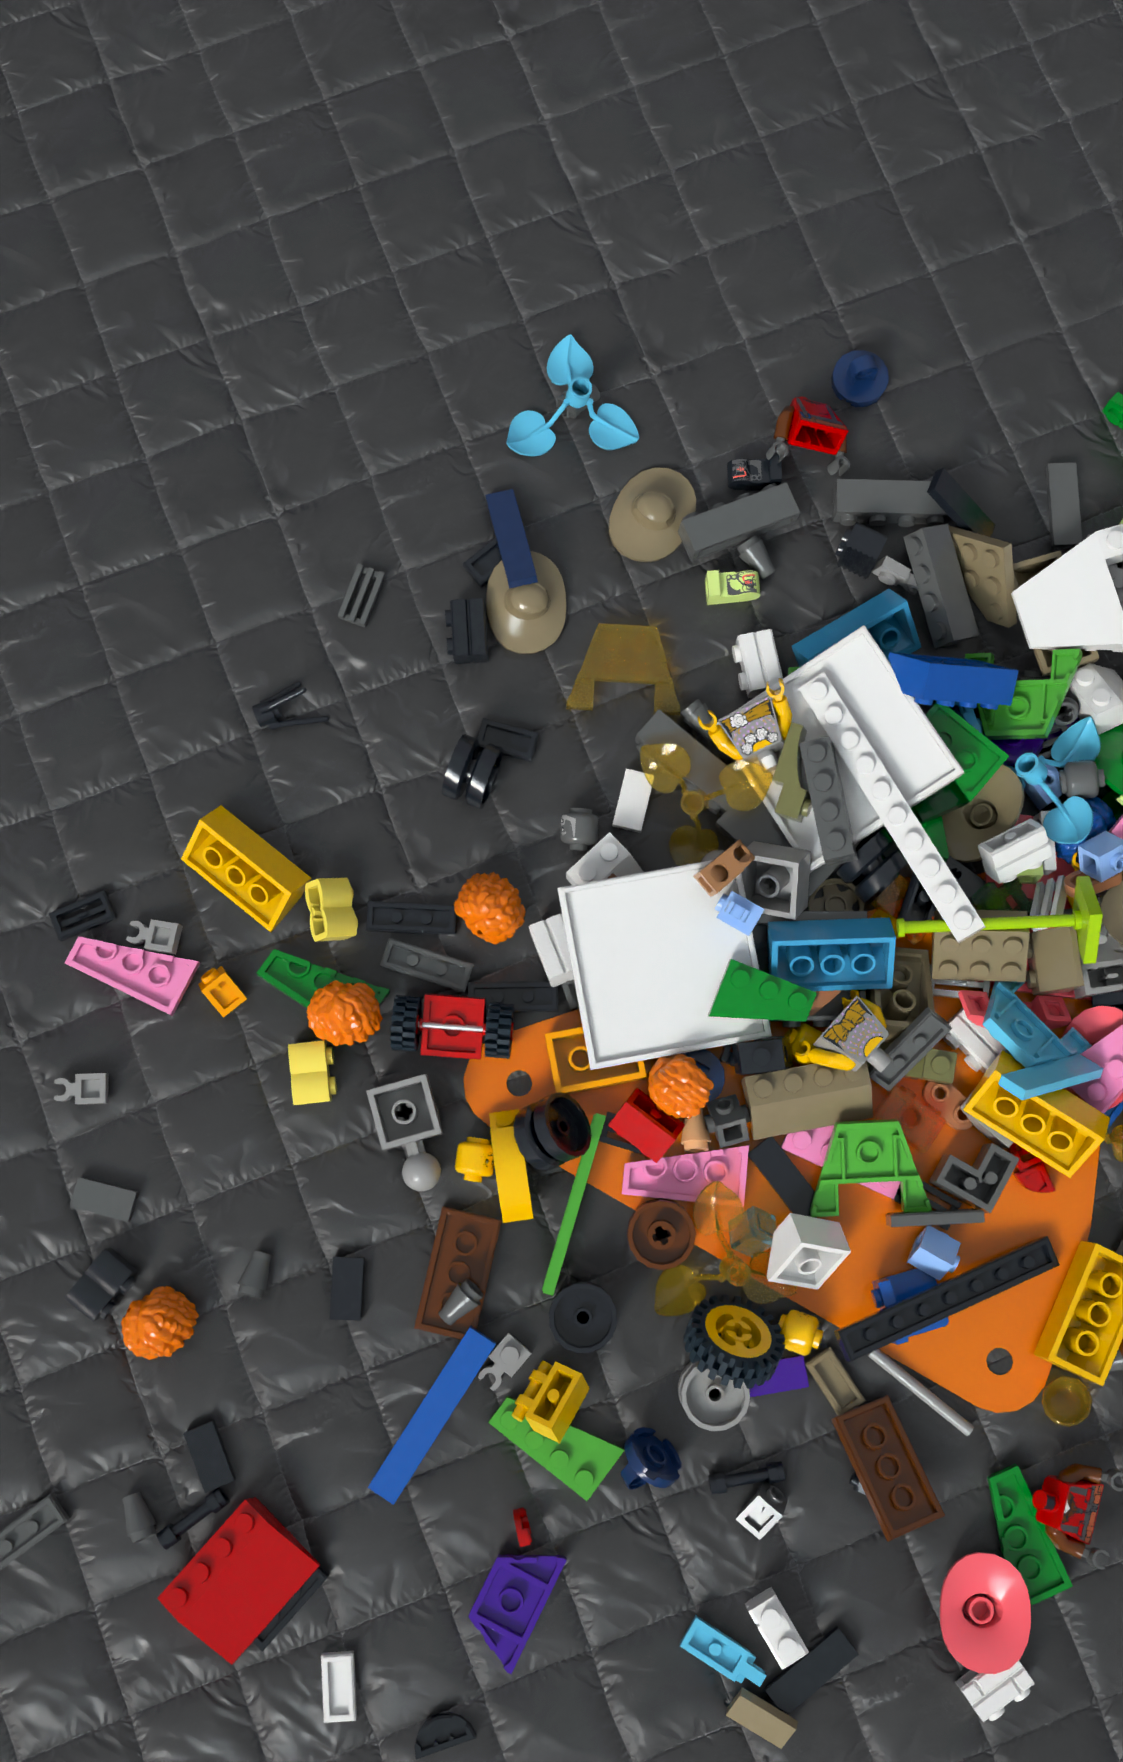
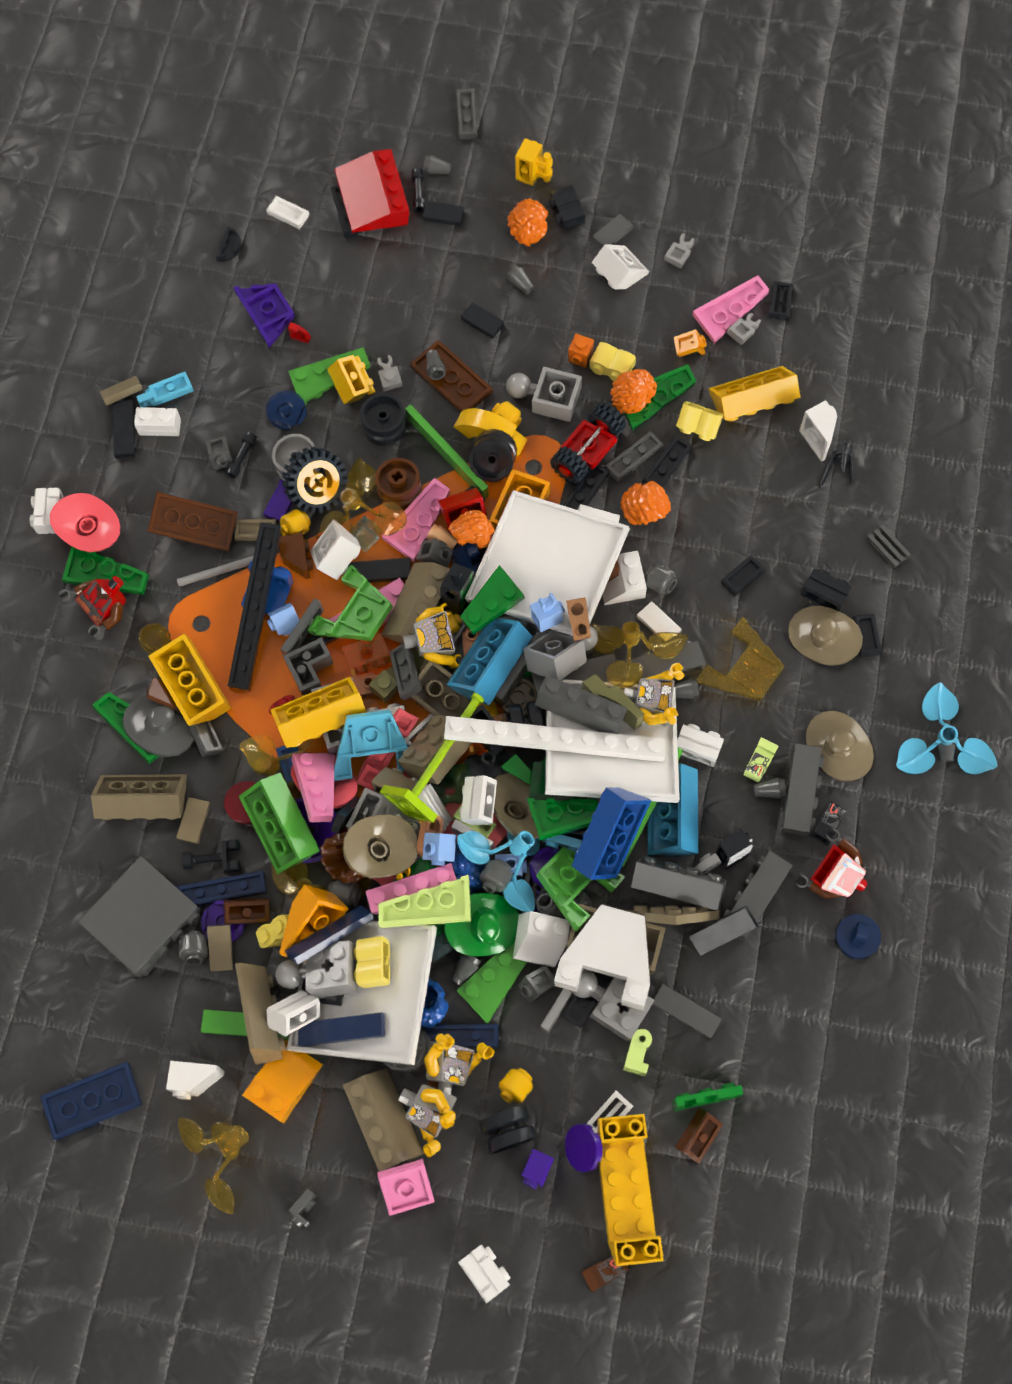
camera: 125 degrees right, 10 degrees down
(63, 1378) = (530, 163): none -> yellow brick
(156, 1153) = (619, 266): none -> white slope
(256, 751) = (818, 428): none -> white slope
(320, 1123) = (580, 350): none -> orange brick
(432, 1415) = (387, 323): blue tile -> none
(472, 771) = (733, 536): black wheel -> none
(511, 538) = (872, 645): dark blue tile -> none
(840, 1301) = (294, 555): none -> reddish brown slope
(1050, 1076) = (333, 724): medium azure tile -> none

